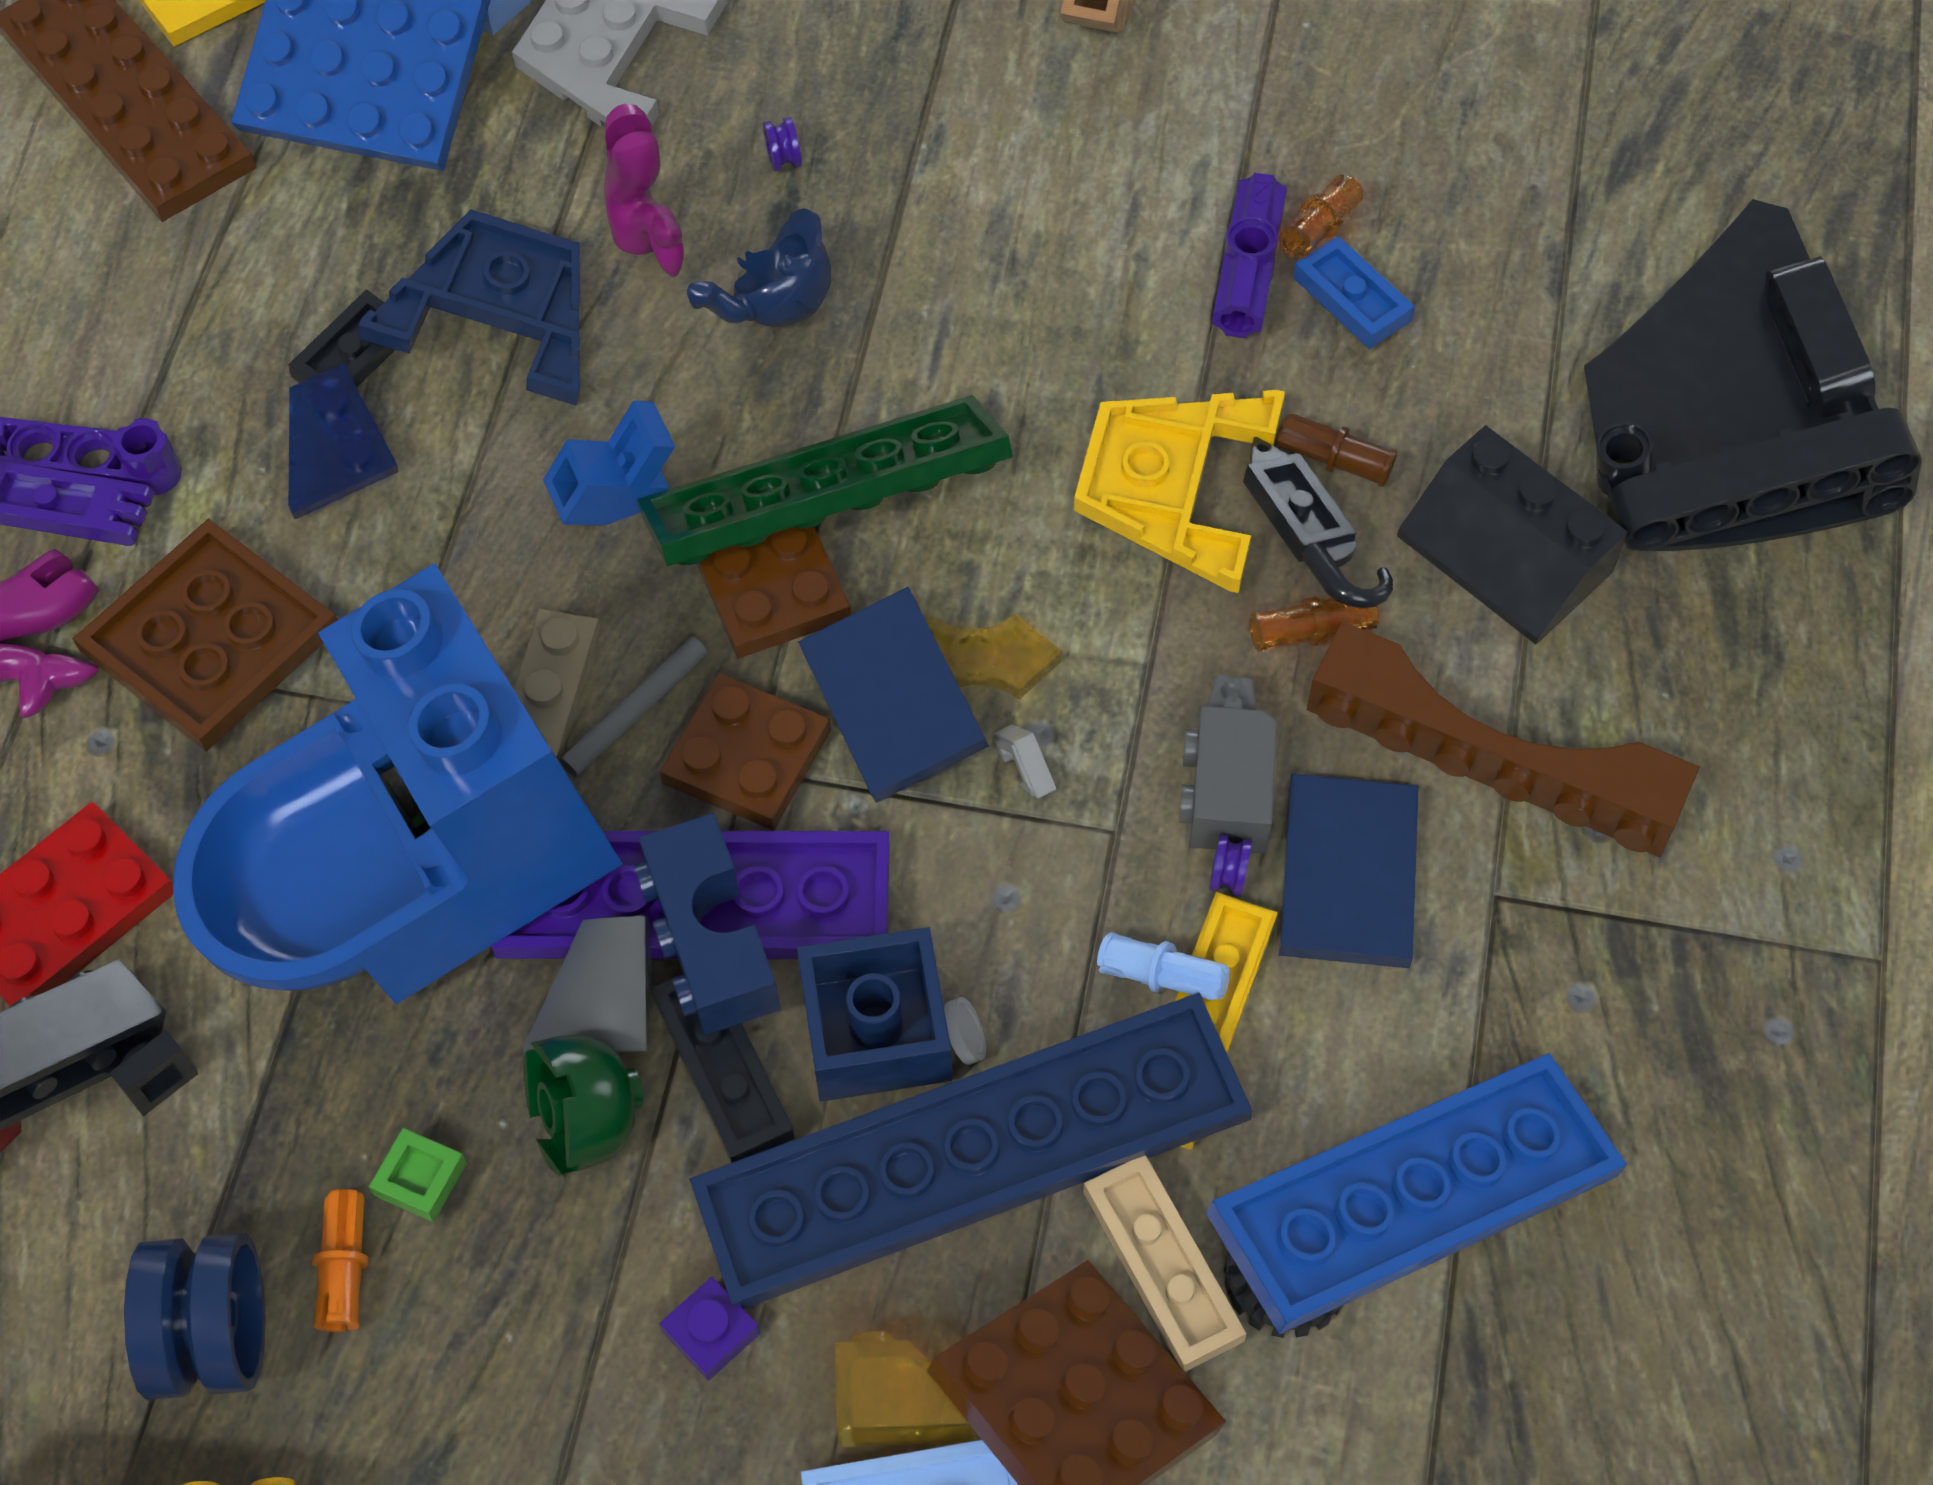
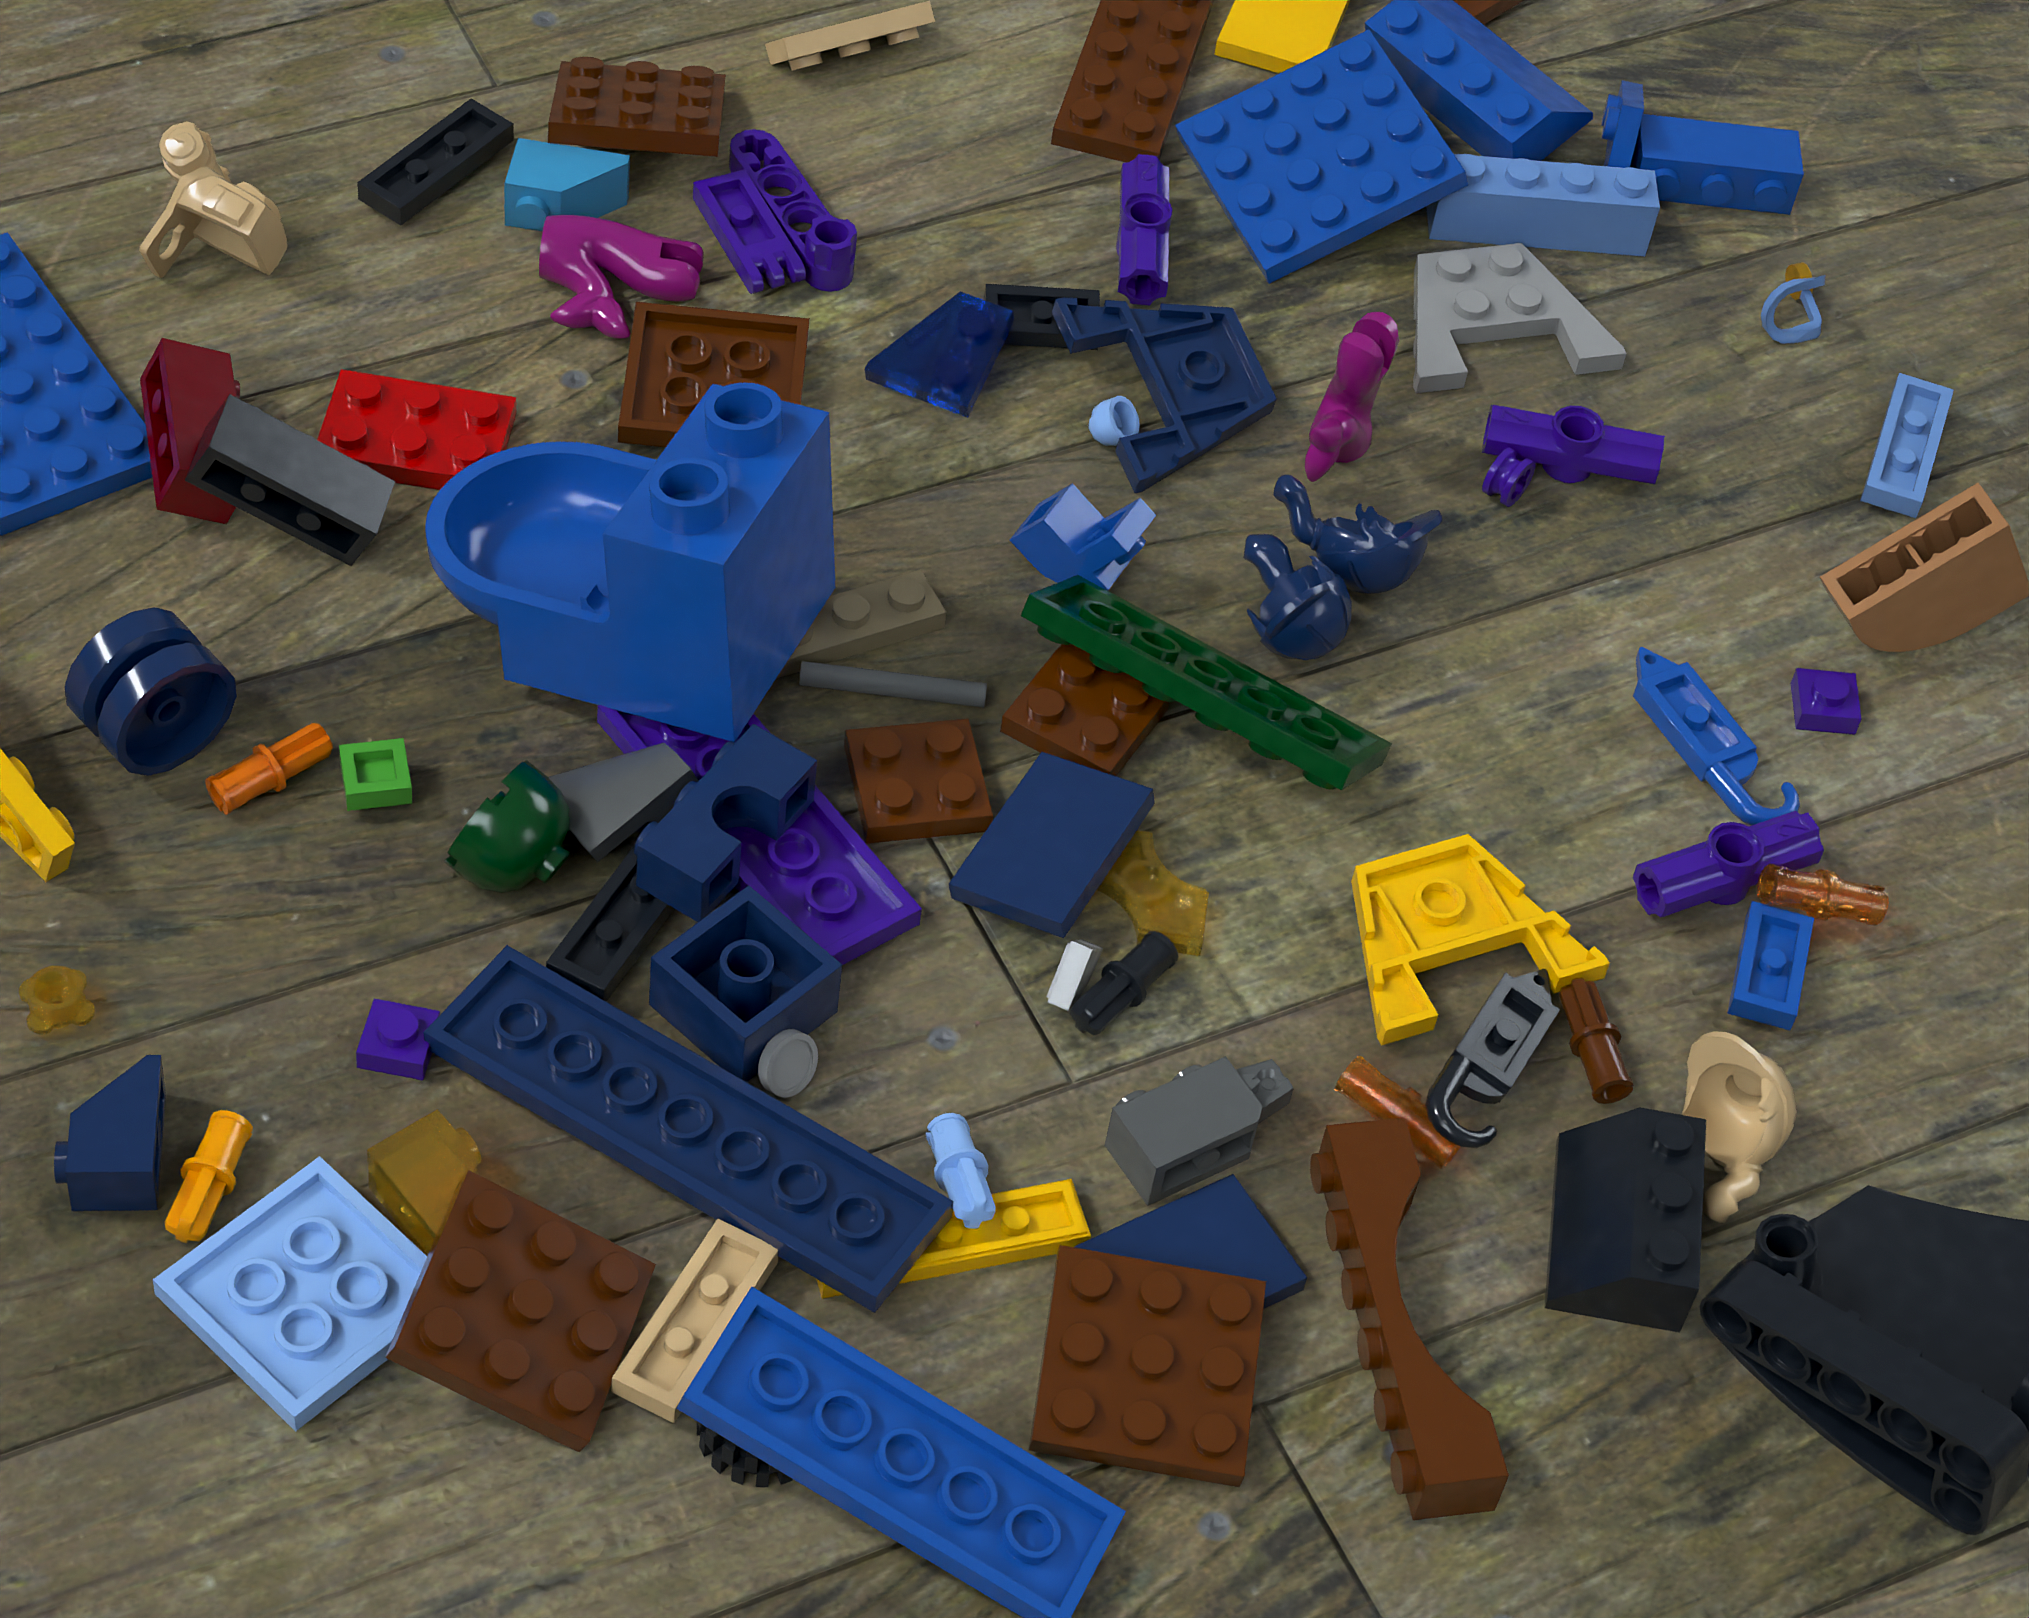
camera: 45 degrees right, 10 degrees down
(153, 1072) = (327, 564): black plate -> none
(324, 216) = (1144, 230): none -> dark purple piece
(502, 371) = (1113, 420): none -> light blue hinge
(787, 81) = (1574, 444): none -> dark purple piece
(805, 366) = (1306, 607): none -> dark blue piece
(1059, 732) = (1124, 983): none -> black axle
(1120, 188) = (1704, 734): none -> blue plate
(1141, 93) = (1825, 701): none -> dark purple plate
(1230, 864) = (1103, 1172): dark purple bush -> none
(1426, 950) = (1148, 1366): none -> reddish brown plate
(1476, 390) = (1746, 1114): none -> tan piece

